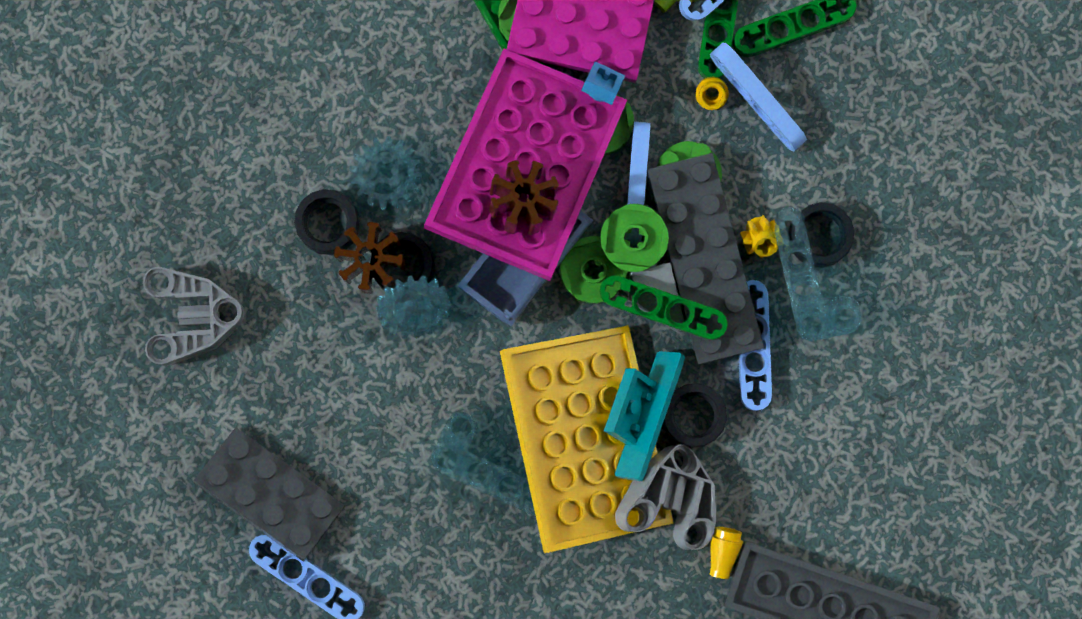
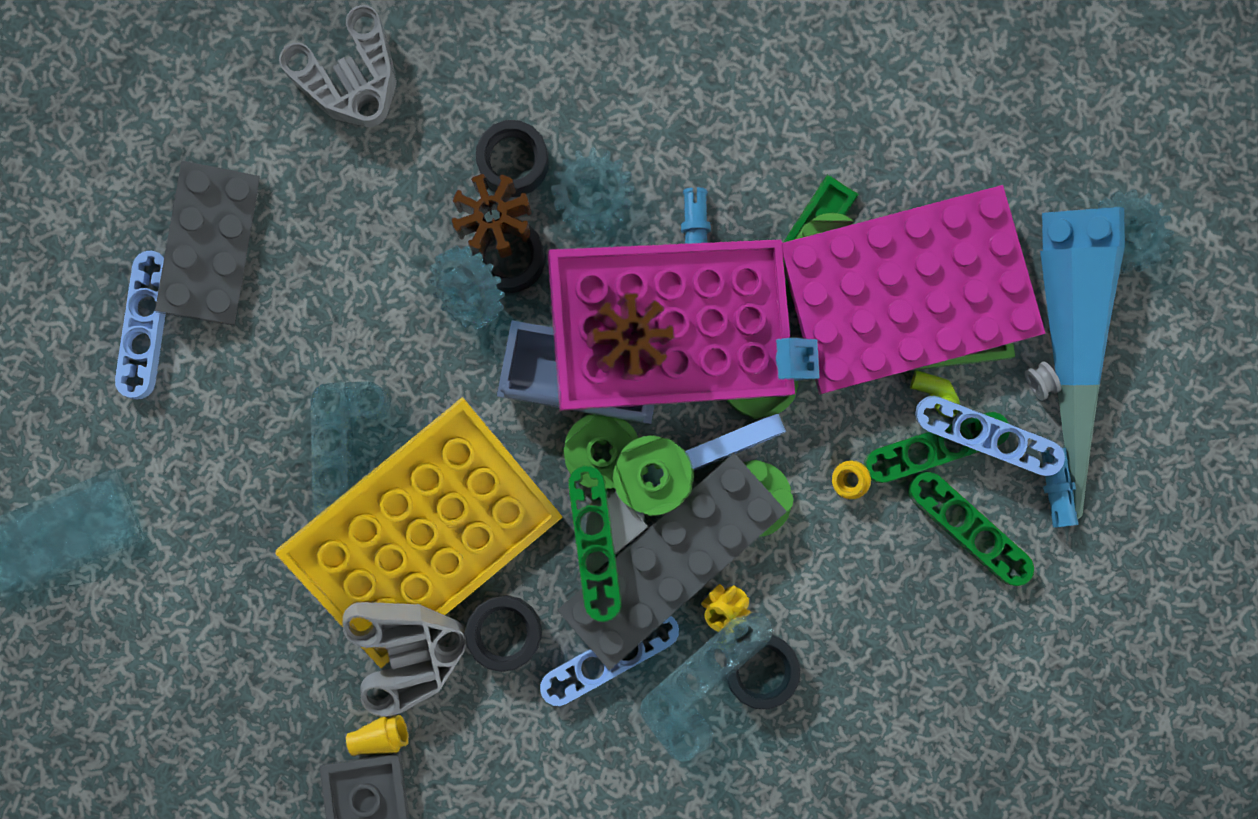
camera: 60 degrees right, 0 degrees up
(449, 106) = (696, 221): none -> dark azure pin
(640, 412) = (475, 575): teal bracket -> none
(758, 96) = (872, 529): light blue beam -> none

